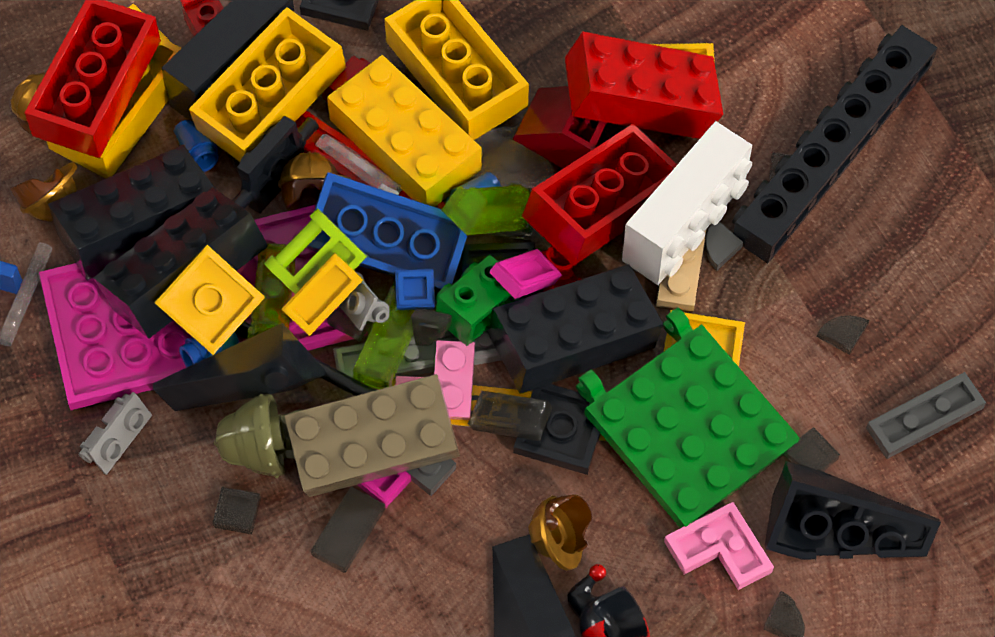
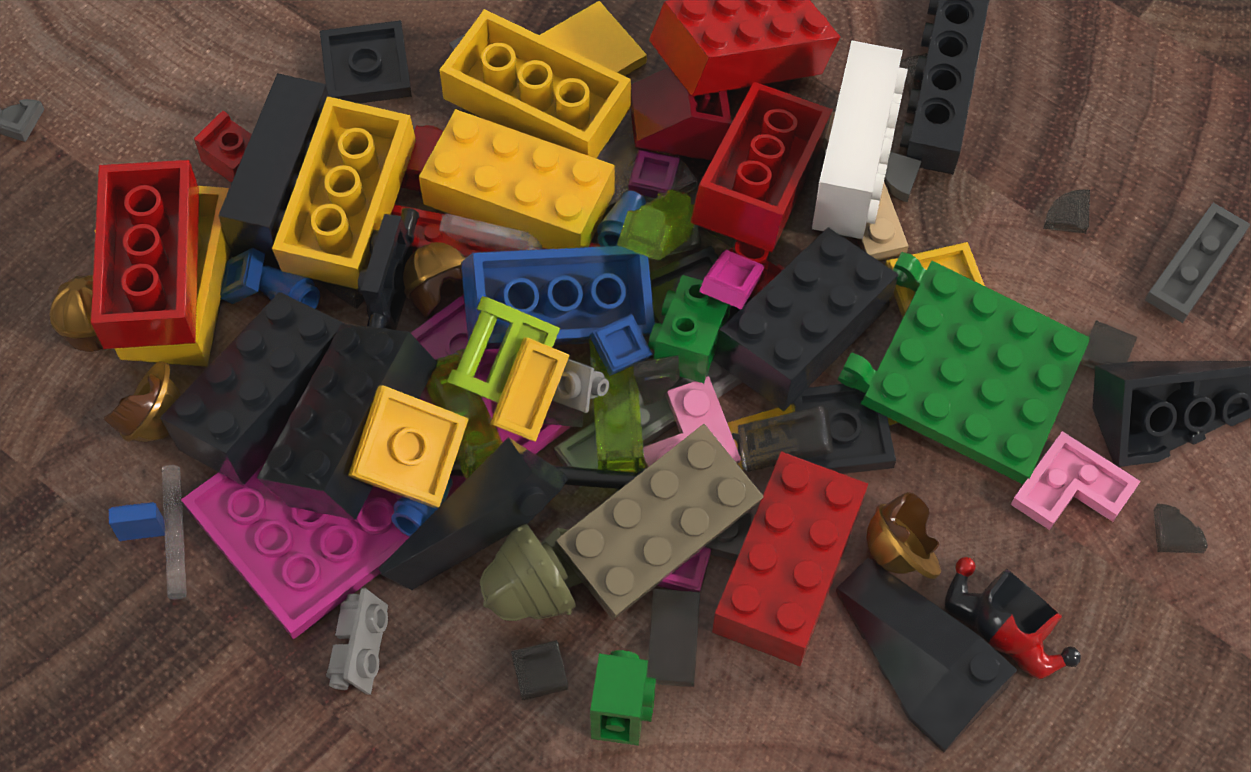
camera: 25 degrees left, 0 degrees up
(167, 121) = (242, 276): none -> blue tile
(277, 554) = (621, 697): none -> green brick
(464, 507) = (789, 558): none -> red brick
(520, 166) = (653, 173): none -> magenta tile
(530, 44) = (599, 38): none -> yellow tile

